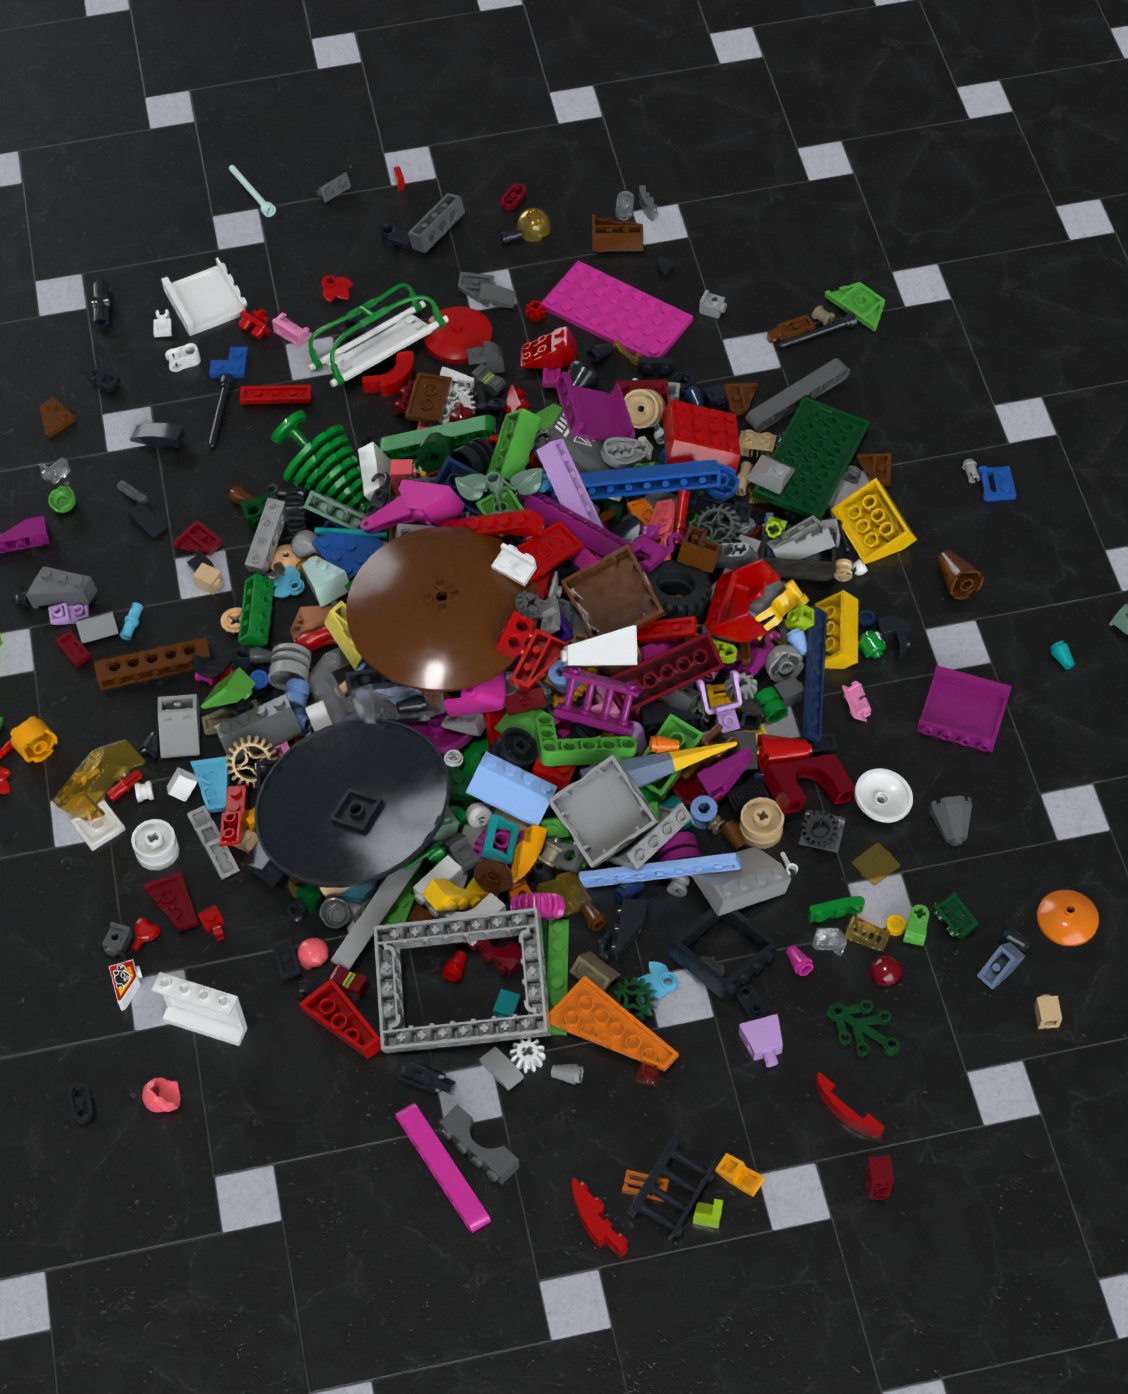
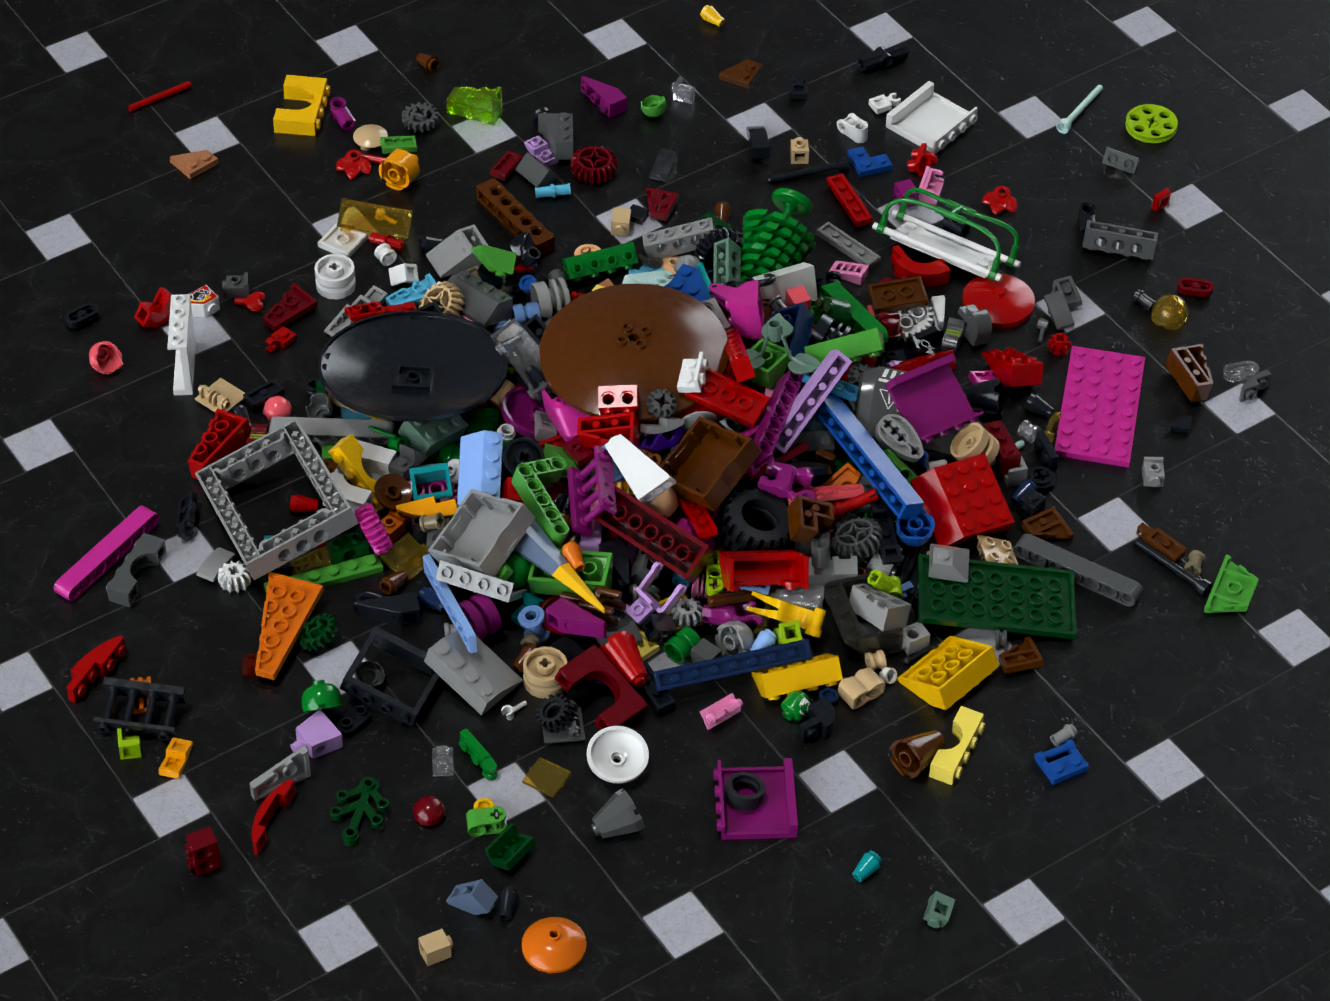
camera: 65 degrees right, 10 degrees down
(115, 1025) = (156, 312): none -> red brick
(117, 580) = (594, 164): none -> dark red gear
(132, 492) = (689, 147): dark grey axle -> none
(189, 408) = (799, 146): none -> tan brick
(268, 1000) = (219, 395): none -> tan hinge
(293, 350) = (901, 188): none -> magenta brick
(298, 150) = (1157, 126): none -> lime wedge
(333, 416) = (847, 245): none -> light grey tile
(373, 418) = (854, 272): none -> bright pink slope
(505, 314) = (1043, 325): none -> dark grey hand
(568, 1072) = (228, 610): light grey cone -> none
(595, 970) = (338, 599): dark tan panel -> none
(627, 369) = (1028, 431): none -> clear wheel
(658, 976) = (346, 647): medium azure plate -> none
(728, 1019) = (321, 696): none -> green cylinder
(801, 963) = (409, 743): dark pink cone -> none
(804, 1088) = (292, 767): none -> light grey wing
(869, 590) = (861, 688): none -> tan brick
(870, 928) = (463, 773): clear yellow slope -> none
(941, 532) = (948, 762): none -> light yellow arch
(957, 702) = (744, 802): none -> black tyre

